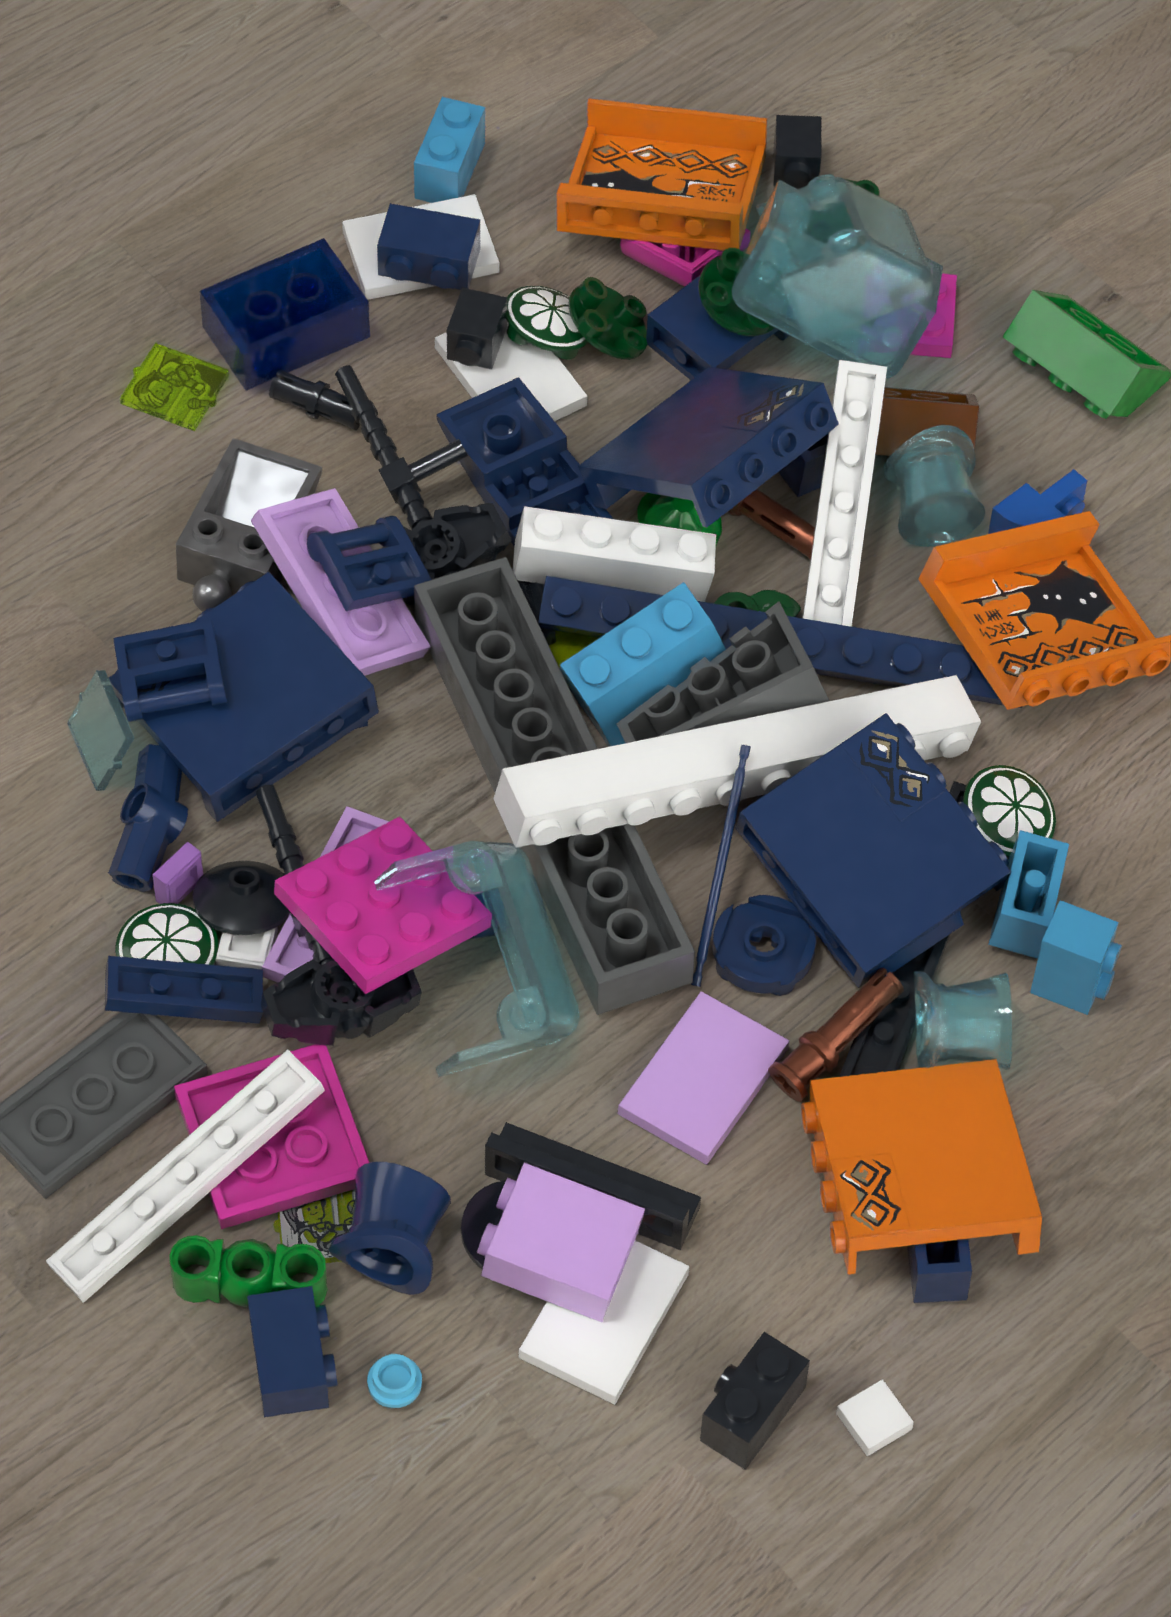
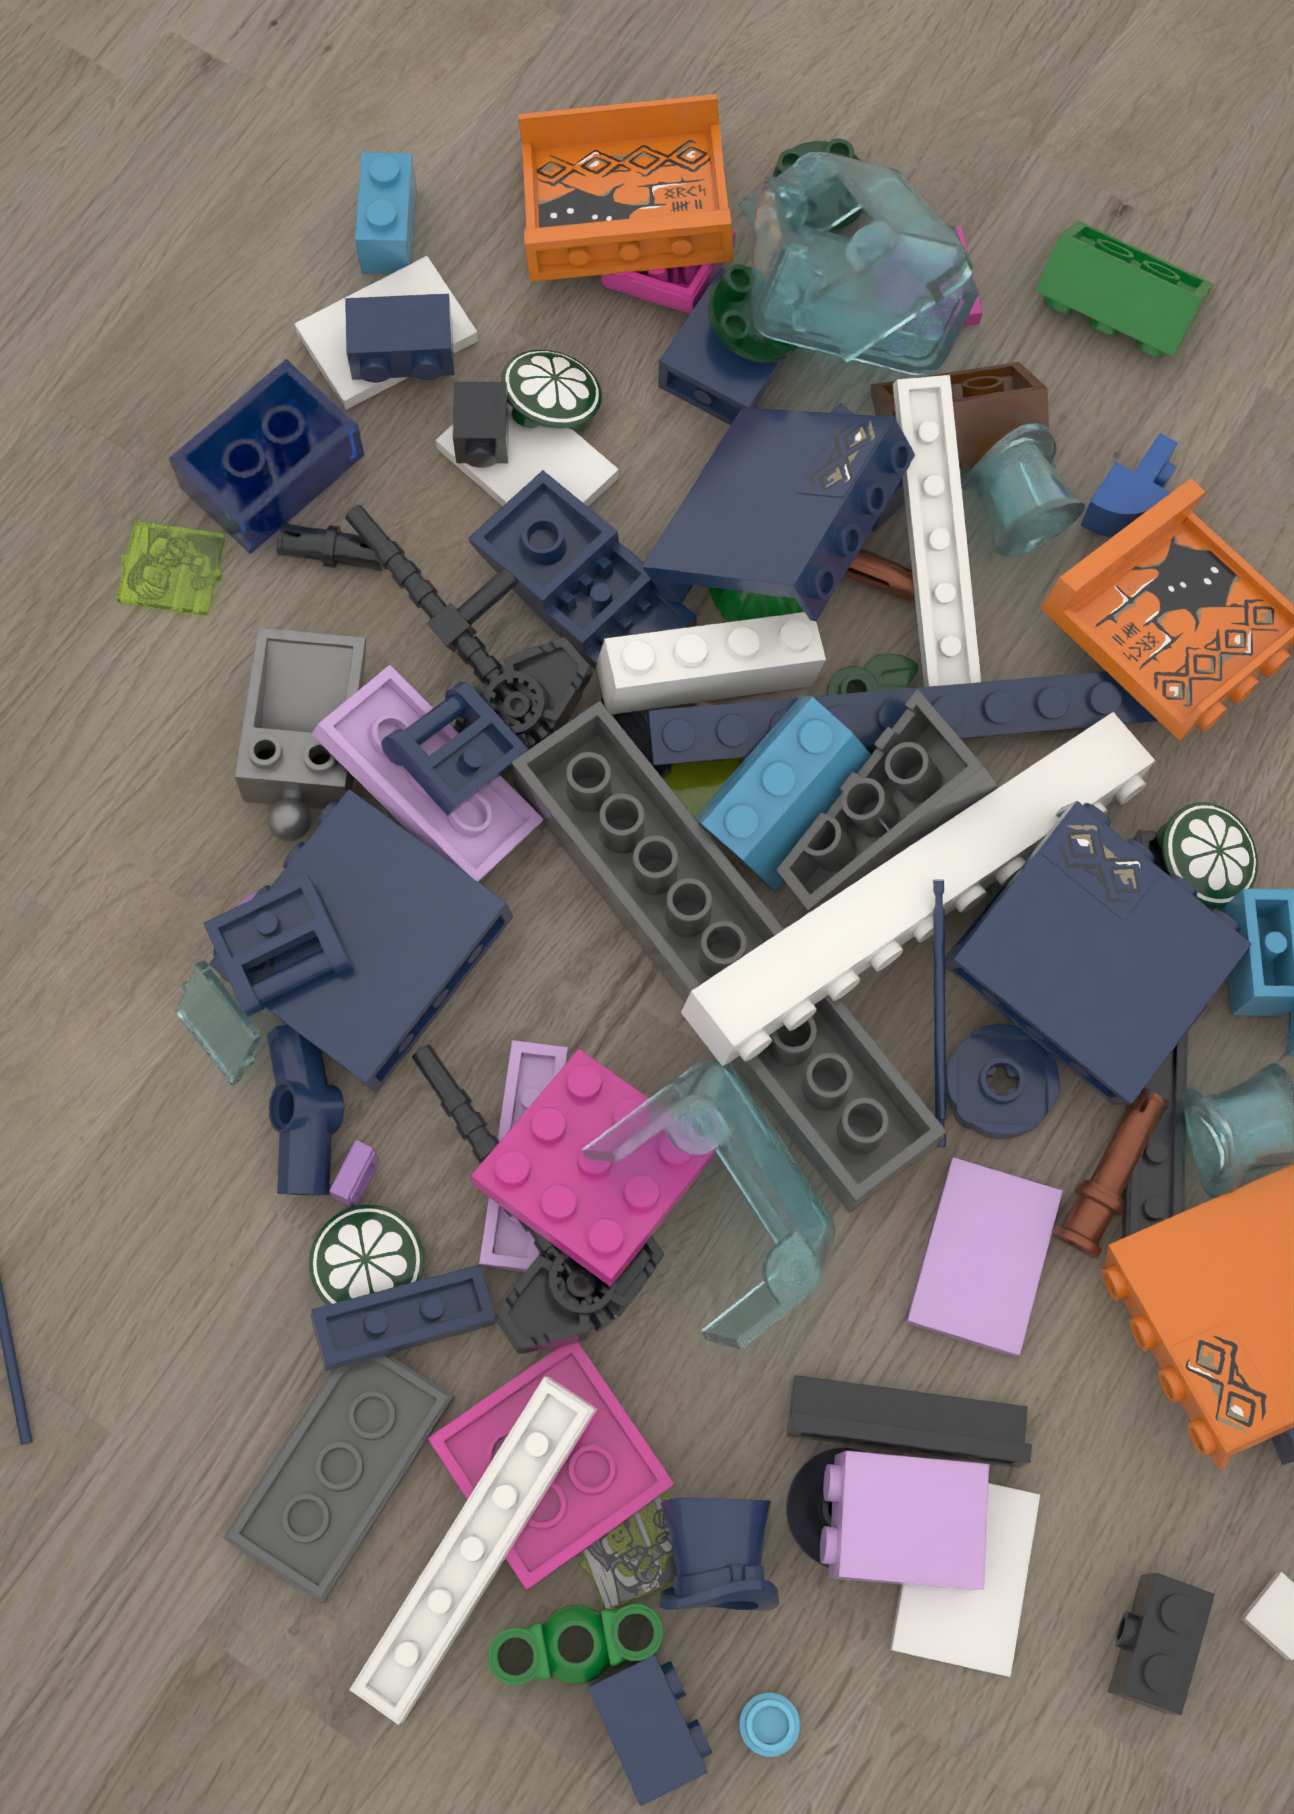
camera: 15 degrees left, 15 degrees up
(240, 898) = (432, 1199): black dish -> none
(245, 950) = (451, 1232): white tile -> none
(609, 319) = (616, 373): dark green dish -> none
(797, 149) = (753, 121): black brick -> none

